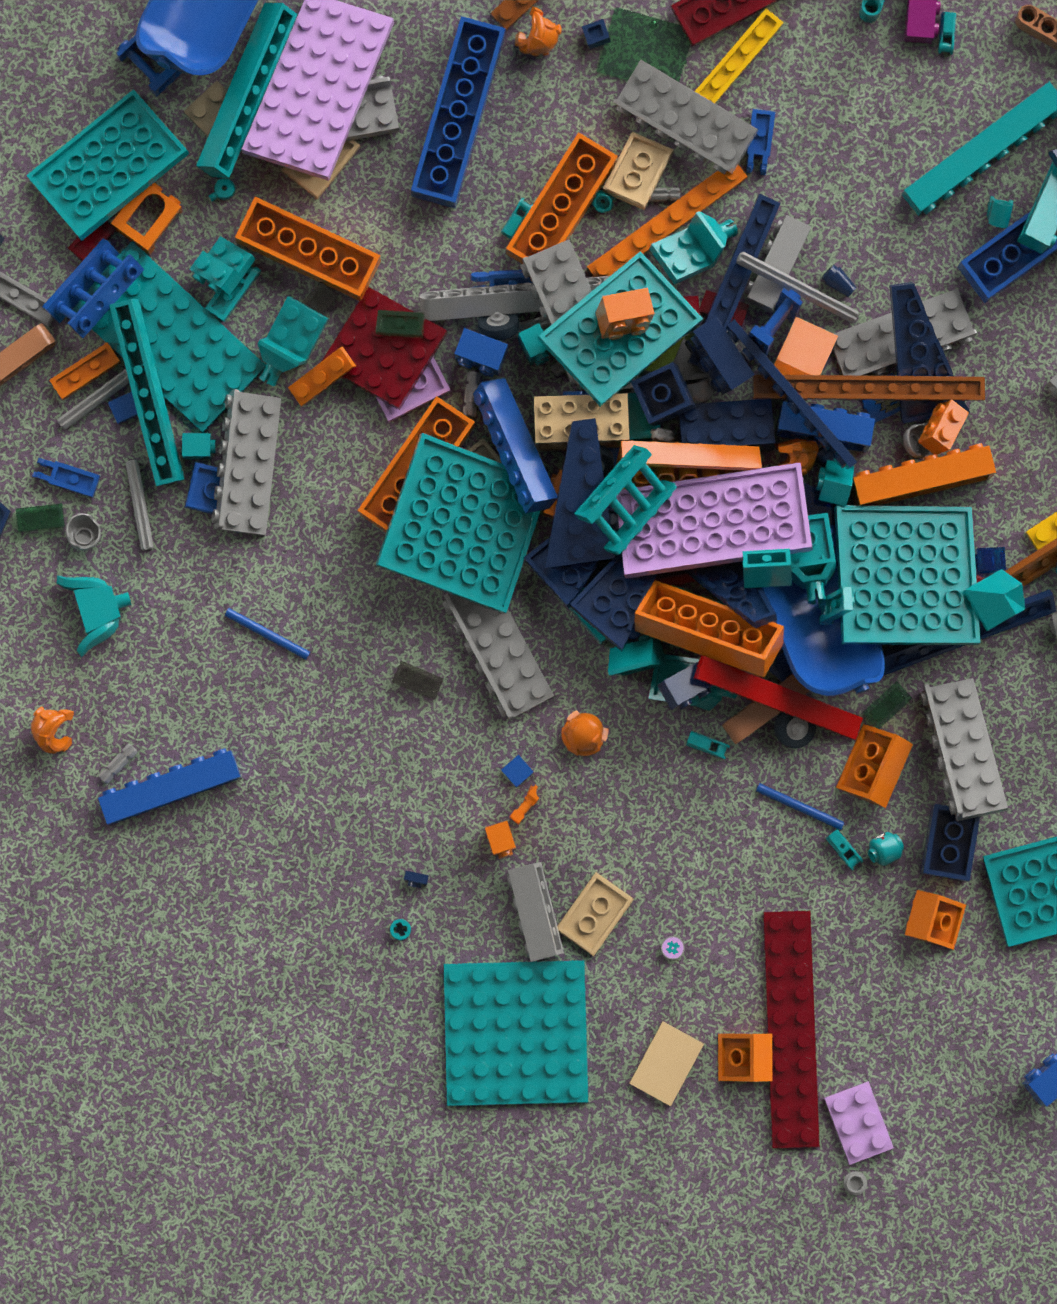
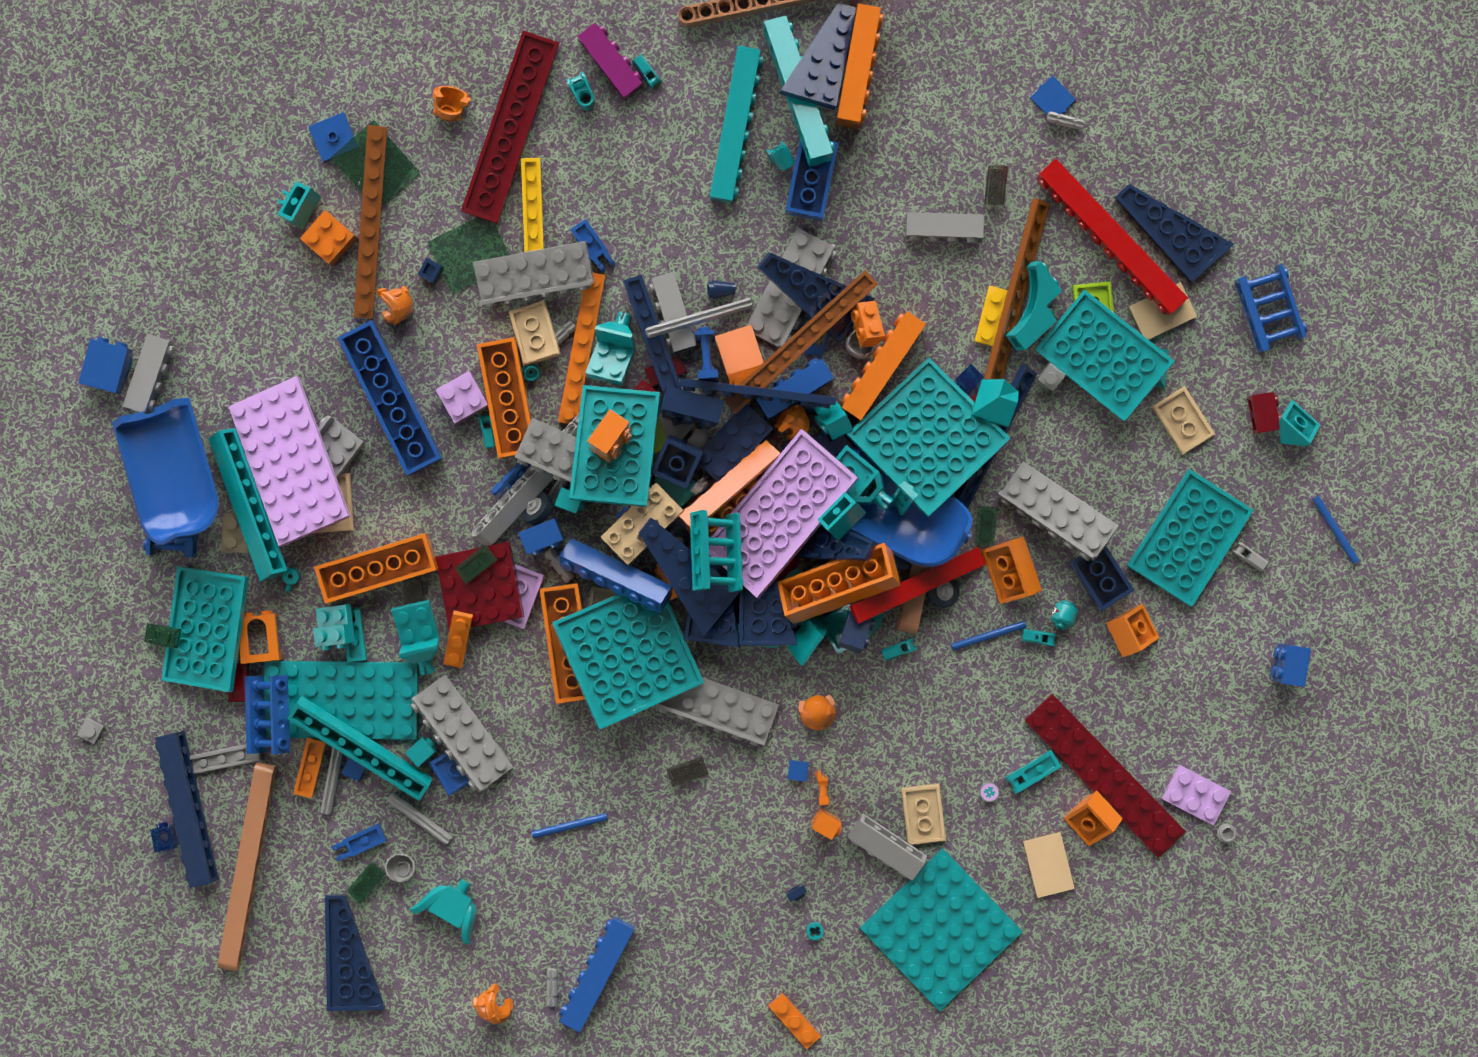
camera: 35 degrees left, 5 degrees up
(64, 137) = (162, 635): none -> clear green plate
(307, 994) = (794, 1020): none -> orange plate
(522, 169) = (462, 397): none -> lavender brick
(730, 965) = (1033, 771): none -> teal plate

